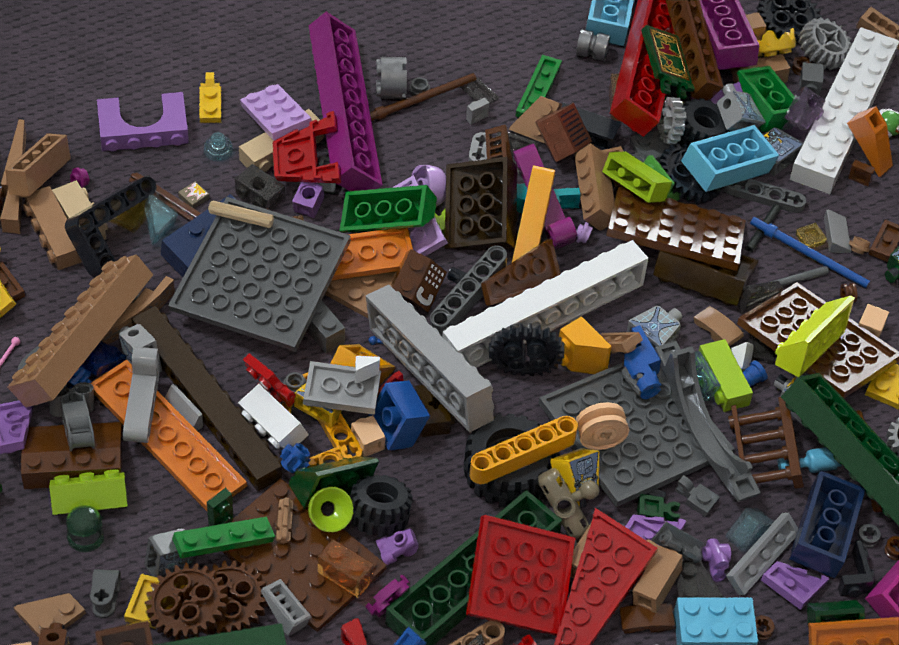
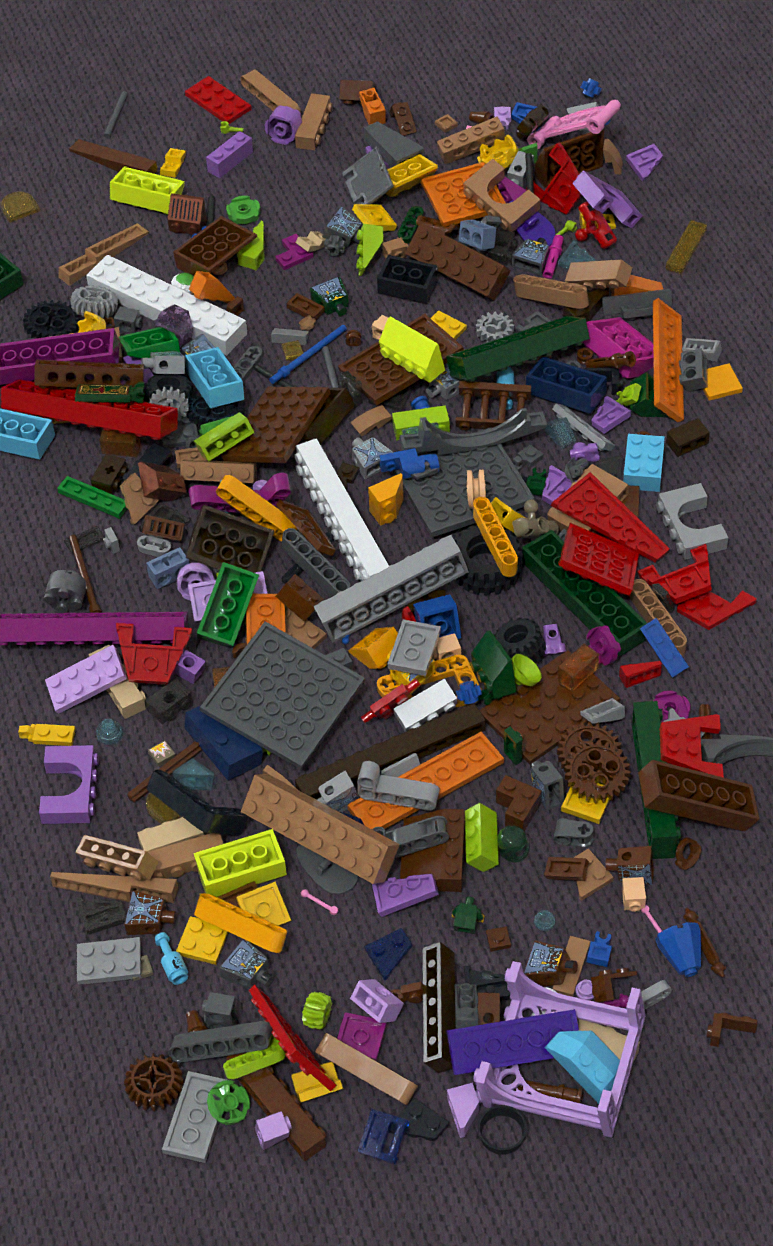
camera: 75 degrees left, 0 degrees up
(41, 272) = (240, 863): none -> neon yellow slope
(49, 585) = (566, 868): none -> reddish brown plate
(81, 176) = (126, 836): magenta plate -> none
(132, 531) = (520, 800): none -> reddish brown brick
(223, 537) = (542, 742): green plate -> none
(241, 214) = (225, 695): tan axle -> none
(284, 520) = (528, 706): medium nougat axle -> none
(294, 378) = (387, 686): dark grey plate -> none
(366, 367) = (406, 624): white slope -> none
(438, 153) = (165, 568): none -> sand blue brick
(543, 349) = (391, 529): black gear -> none
(573, 91) = (109, 474): none -> dark brown brick
(592, 45) = (54, 452): flat silver wheel -> none
(623, 312) = (347, 473): none -> dark brown plate
(623, 341) = (396, 465): medium nougat plate -> none
(743, 354) = (405, 405): white slope -> none
(826, 596) = (629, 395): none -> lime plate
(878, 571) = (617, 361): none -> reddish brown pin

